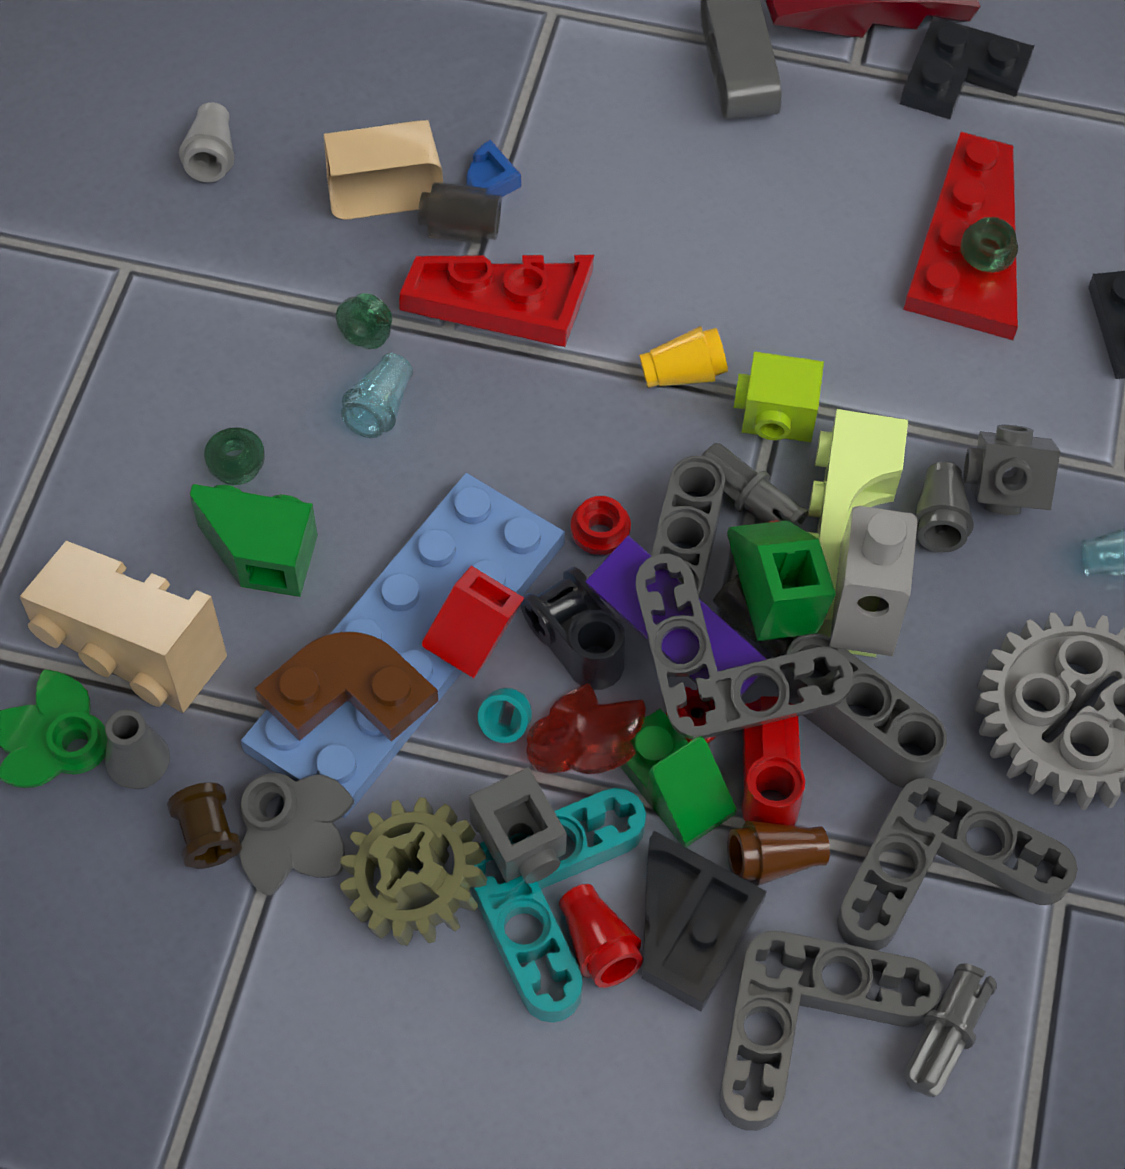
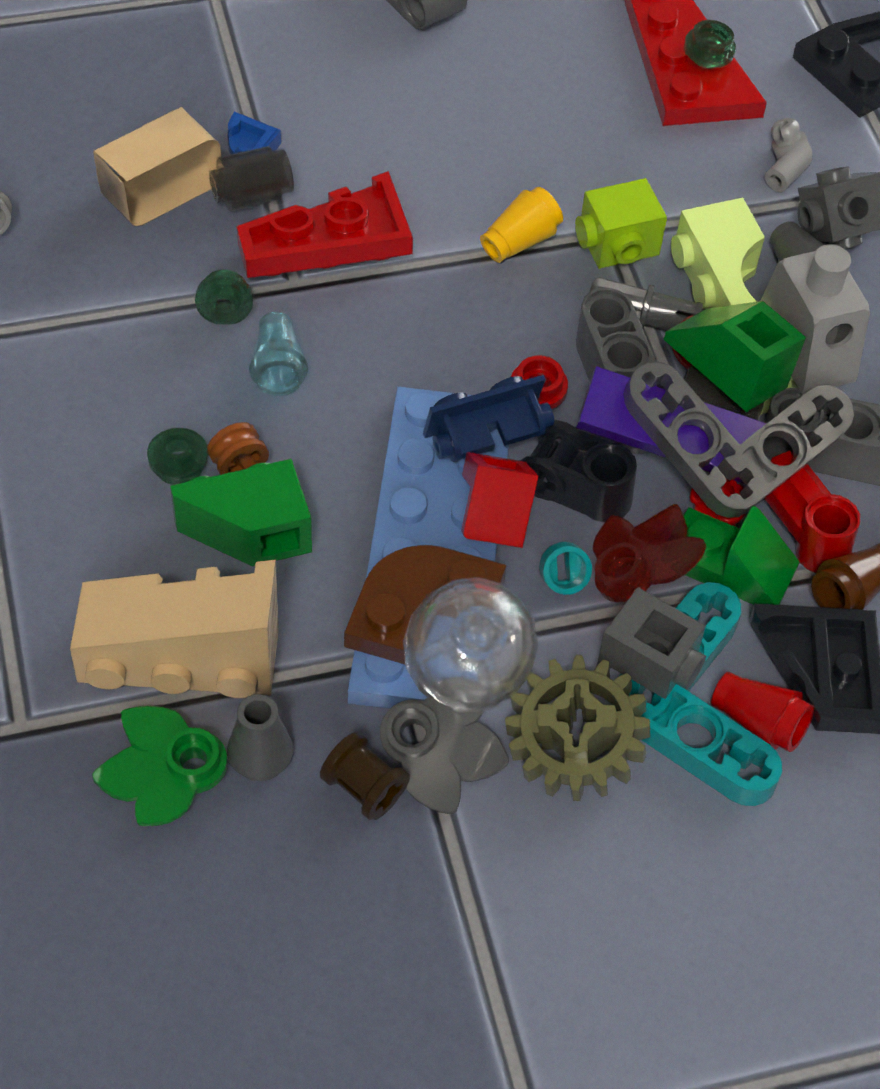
camera: 30 degrees left, 5 degrees down
(284, 473) = (237, 448): none -> dark orange bush
(351, 750) = (470, 644): none -> clear cylinder
(535, 539) = (463, 421): none -> dark blue hinge
(1011, 390) = (792, 154): none -> light grey arm

